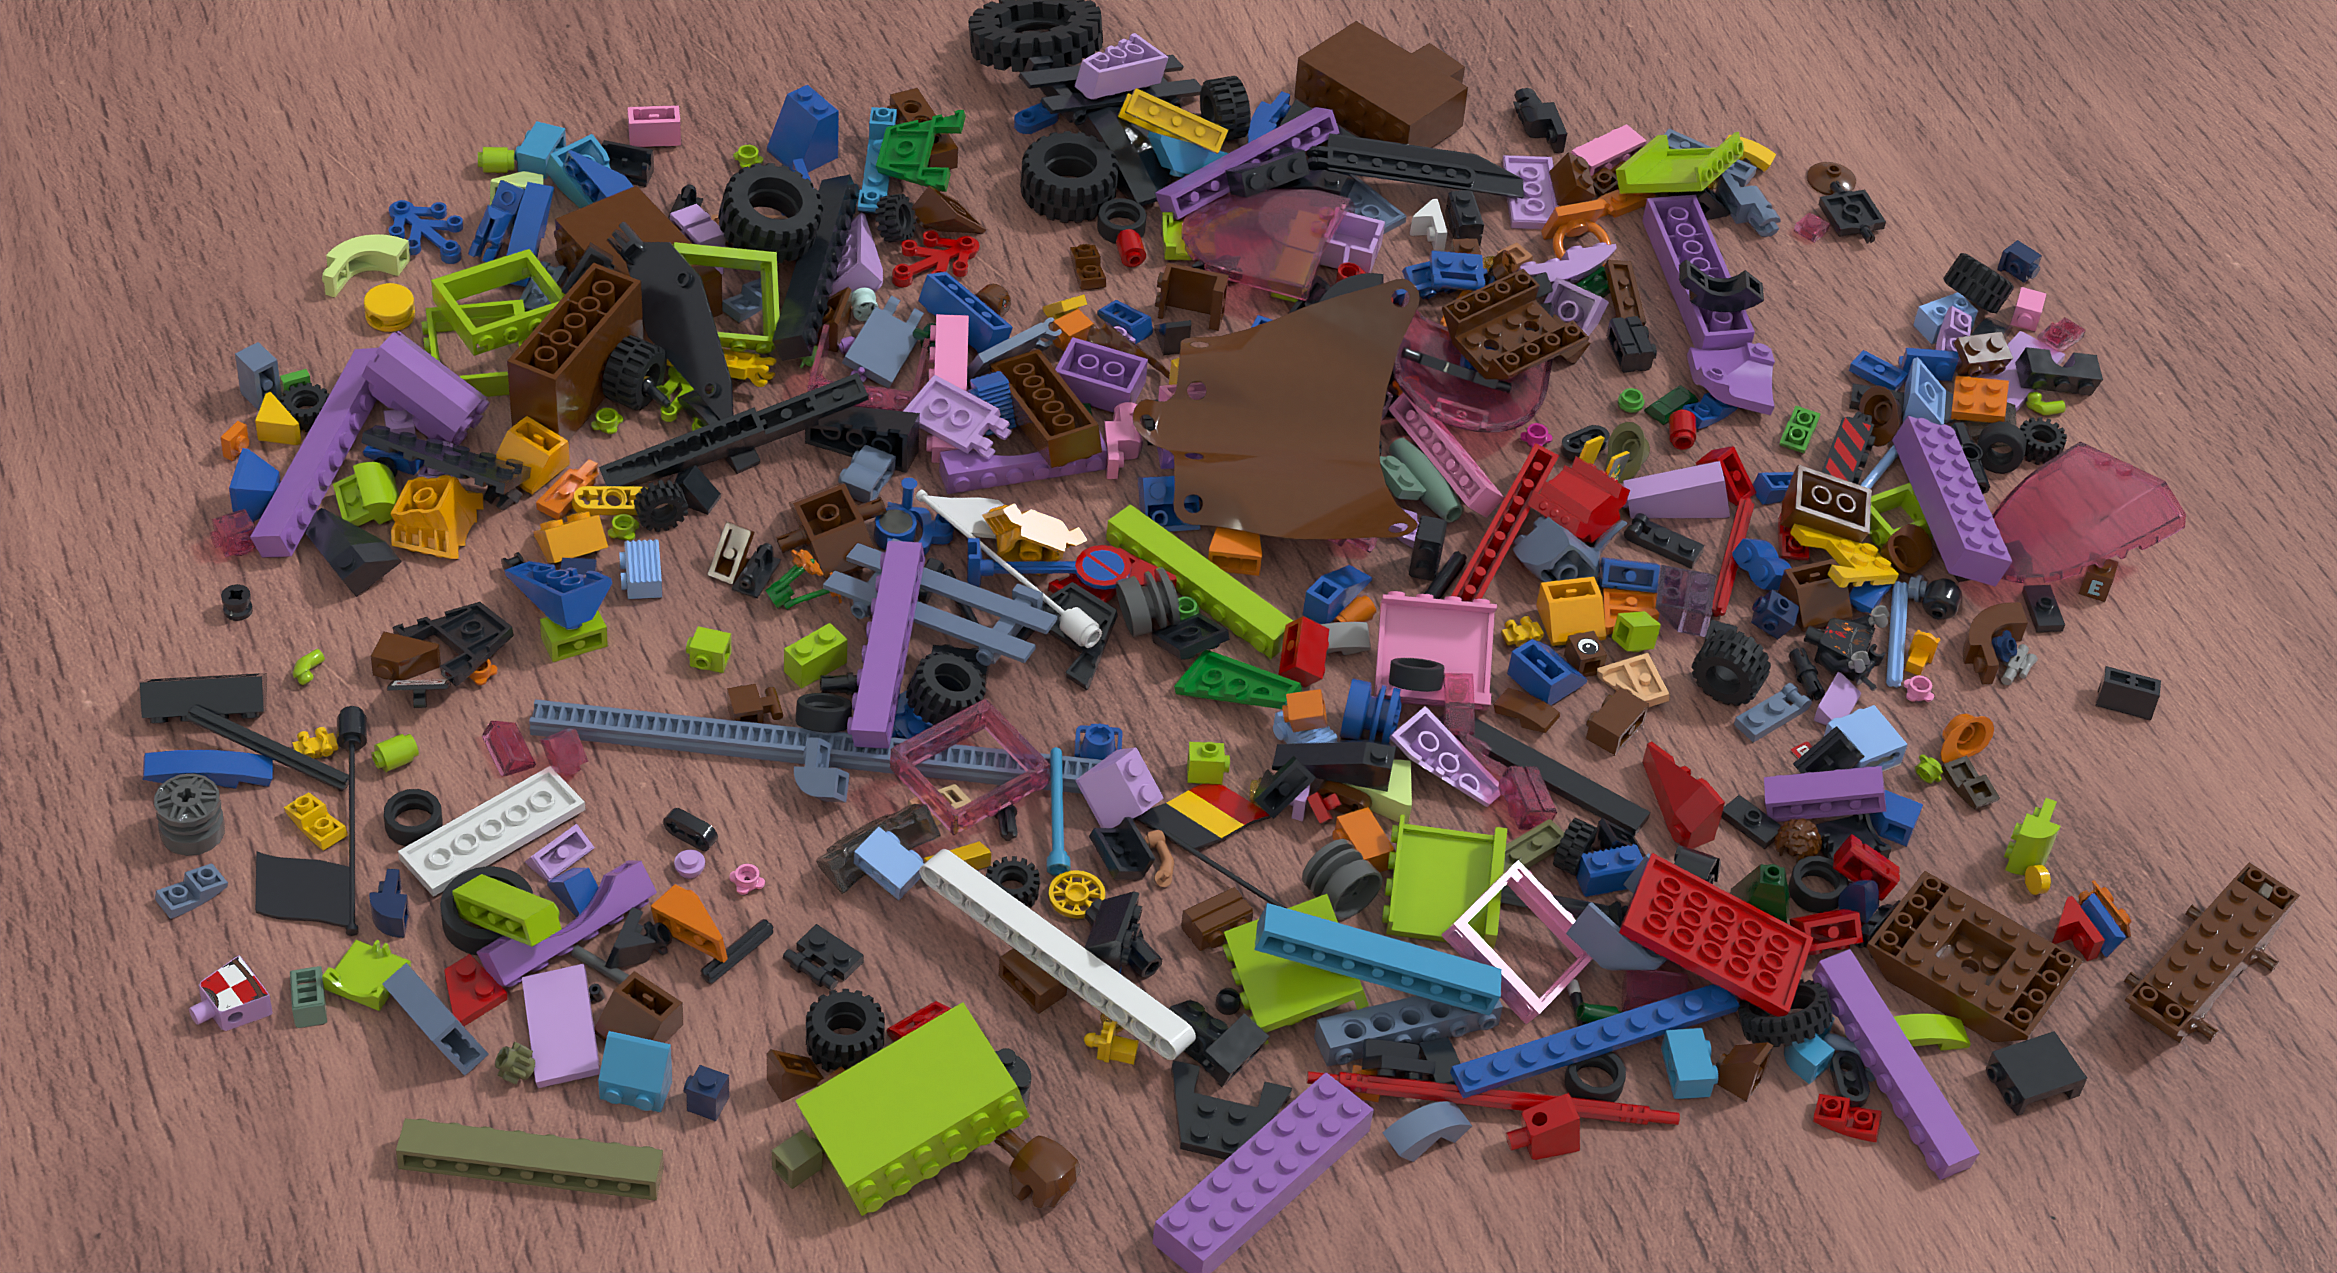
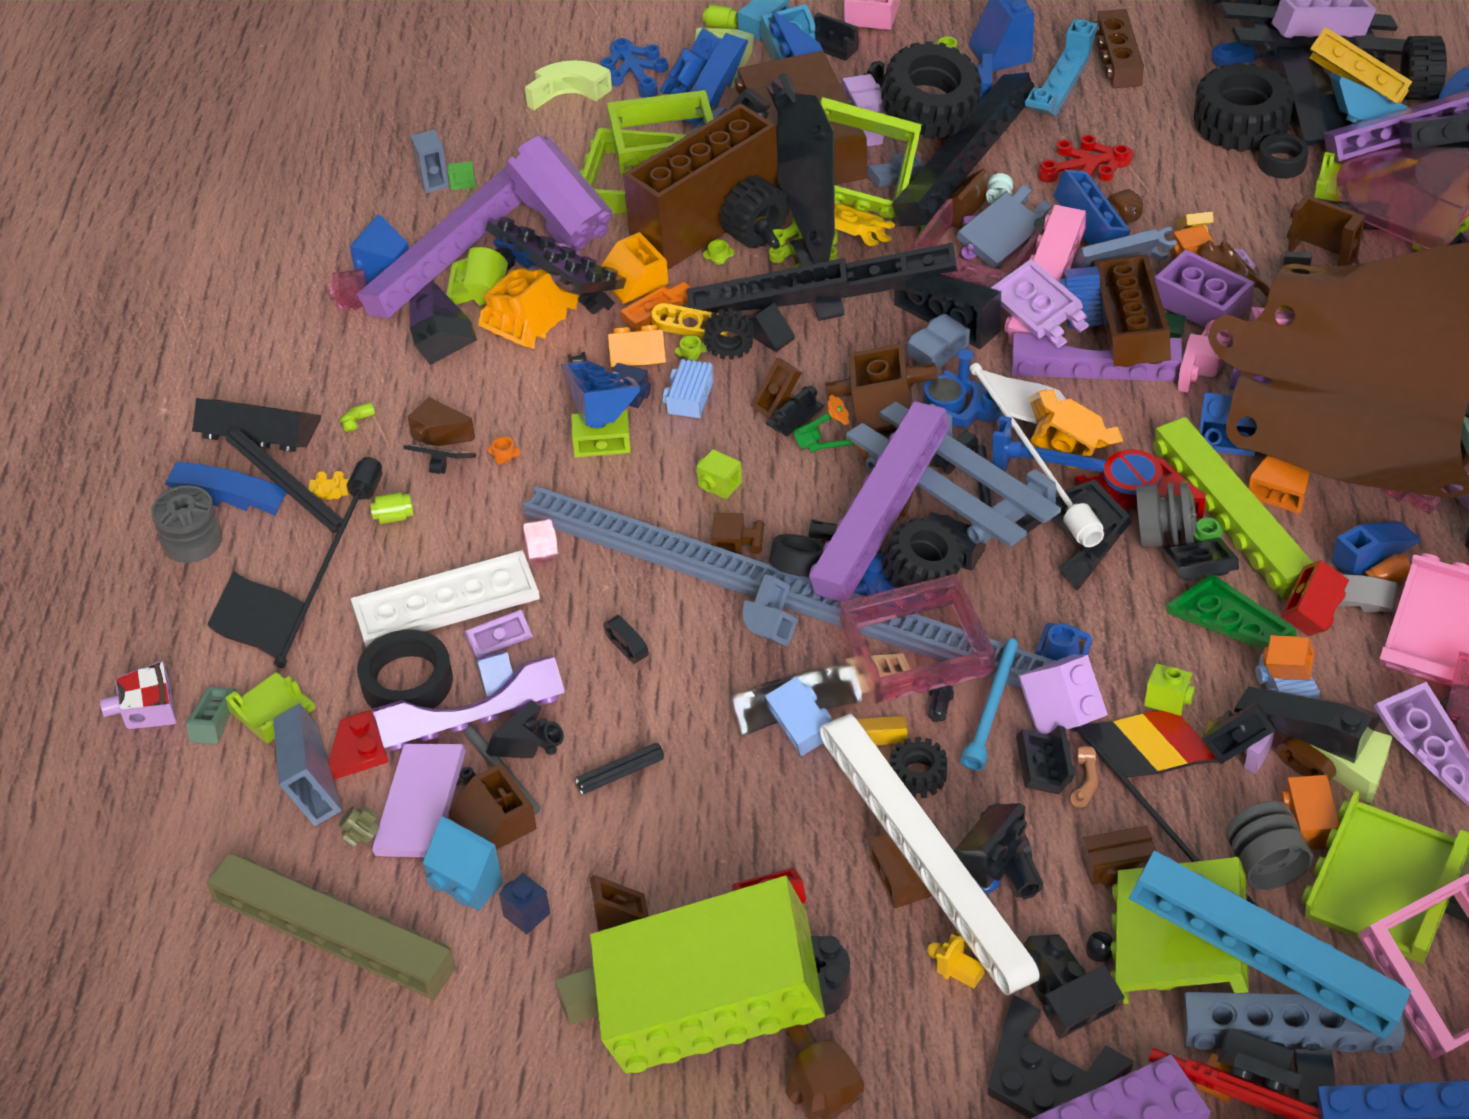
camera: 30 degrees right, 0 degrees up
(196, 889) = (167, 593): sand blue slope -> none
(234, 440) = (390, 210): orange plate -> none
(237, 602) = (323, 348): black wheel -> none
(276, 423) = (427, 202): yellow slope -> none
(304, 396) = (457, 190): black tyre -> none
(314, 821) = (296, 555): yellow slope -> none
(389, 307) = (572, 124): yellow head -> none
(389, 906) = (320, 647): dark blue brick -> none
(399, 421) = (536, 221): lavender plate -> none
(409, 800) = (379, 554): black tyre -> none
(468, 630) = (506, 415): black wing -> none
(507, 748) = (497, 526): clear pink slope -> none
(507, 910) = (411, 675): lime brick -> none
(689, 863) = (612, 672): lavender plate -> none
(689, 921) = (581, 726): orange slope -> none
(747, 878) = (660, 699): bright pink plate -> none
(815, 655) = (816, 499): lime brick -> none
(827, 951) = (707, 790): black plate -> none
(844, 1011) = (682, 854): black tyre -> none
(860, 260) = (1010, 151): lavender wedge -> none
(895, 218) = (1058, 117): black tyre -> none
(908, 149) = (1095, 58): green wing -> none
(944, 213) = (1109, 122): reddish brown slope -> none
(1075, 894) = (981, 792): yellow wheel -> none
(1087, 266) = (1233, 191): reddish brown slope -> none
(1130, 248) = (1282, 181): red brick -> none
(1133, 321) = (1257, 247): blue slope -> none
(1322, 806) = (1277, 763): red tile -> none
(1370, 712) = (1359, 673): blue wheel -> none
(1416, 674) = (1428, 646): black tyre -> none

